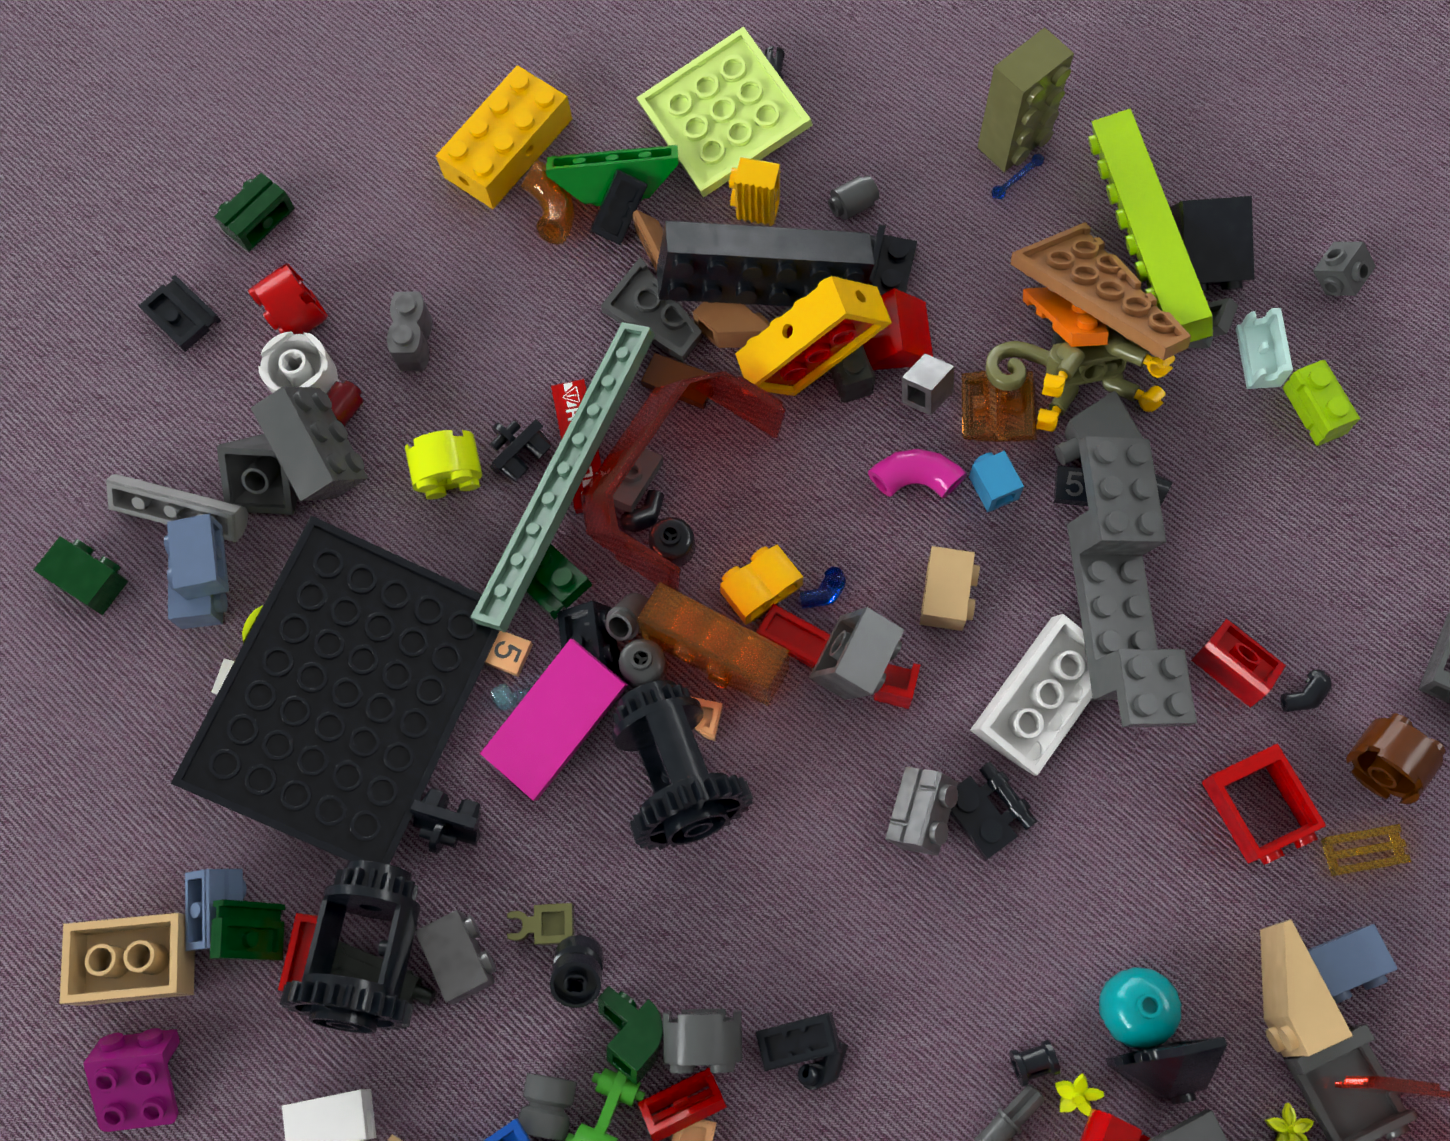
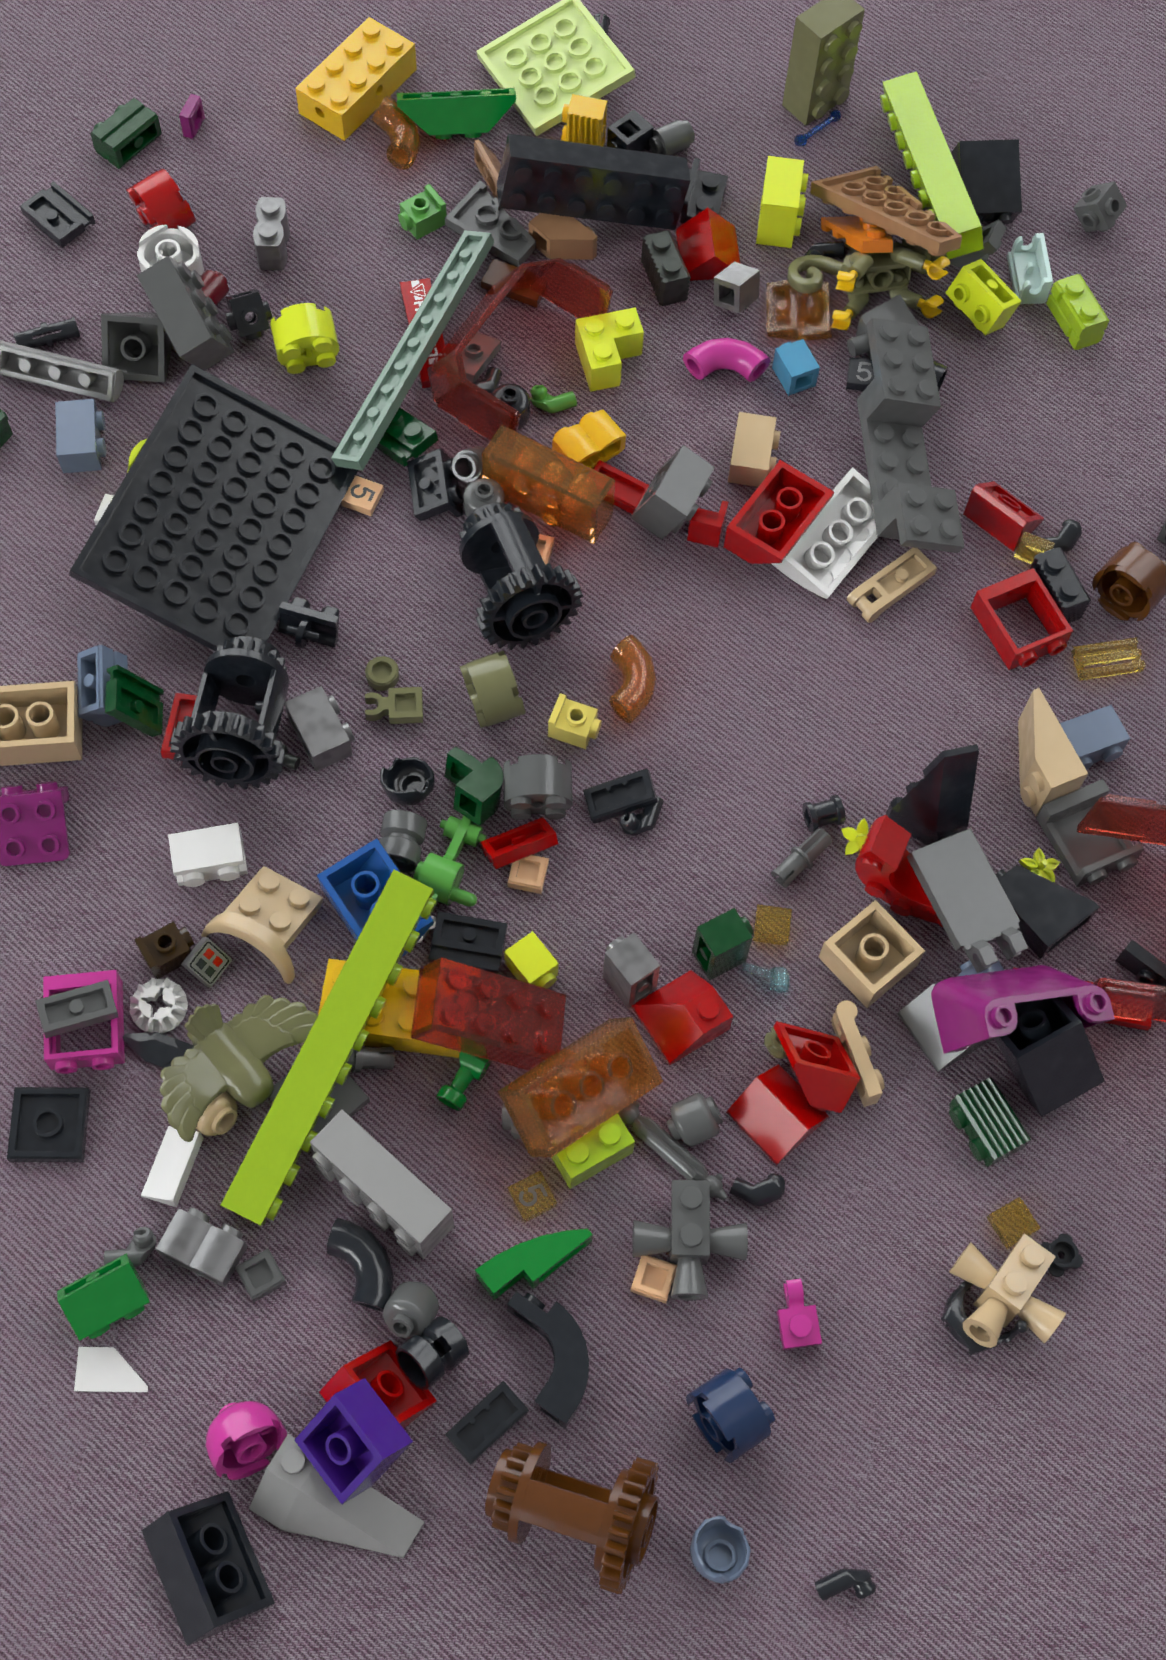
camera: 10 degrees left, 5 degrees down
(187, 454) = (68, 330): none -> black pin
(196, 556) = (84, 401): sand blue brick -> none
(325, 189) = (192, 116): none -> magenta tile
(381, 433) = (239, 306): none -> black brick
(505, 698) = (360, 531): clear light blue hand -> none
(528, 879) = (382, 673): none -> olive tile
(530, 438) = (380, 323): black hips -> none
(553, 719) = (405, 543): dark pink tile -> none
(553, 1027) = (407, 781): none -> black hair
(576, 299) = (423, 213): none -> bright green brick
(577, 971) = (428, 734): black wheel -> none
(618, 207) = (461, 136): black plate -> none
(651, 911) = (492, 689): none -> olive brick
(718, 531) = (551, 403): none -> bright green arm
(729, 942) = (569, 731): none -> light yellow brick
(779, 453) = (605, 341): none -> neon yellow brick
(805, 196) = (630, 133): none -> black brick
(813, 336) = (638, 234): yellow brick -> none
(818, 888) = (638, 679): none -> clear orange cylinder
(828, 591) = (647, 453): clear blue arm -> none
(922, 811) = (728, 618): flat silver brick -> none
(978, 277) = (782, 202): none -> neon yellow brick
(978, 680) = (776, 515): none -> red slope
(980, 818) = (778, 629): black plate -> none
(1025, 330) = (827, 249): none -> black arm
(1109, 759) = (892, 583): none -> tan plate
(1140, 1007) = (906, 765): teal cylinder -> none
(1211, 388) = (983, 297): none -> neon yellow brick
(1276, 712) = (1030, 546): none -> clear yellow tile
(1309, 758) = (1062, 583): none -> black brick

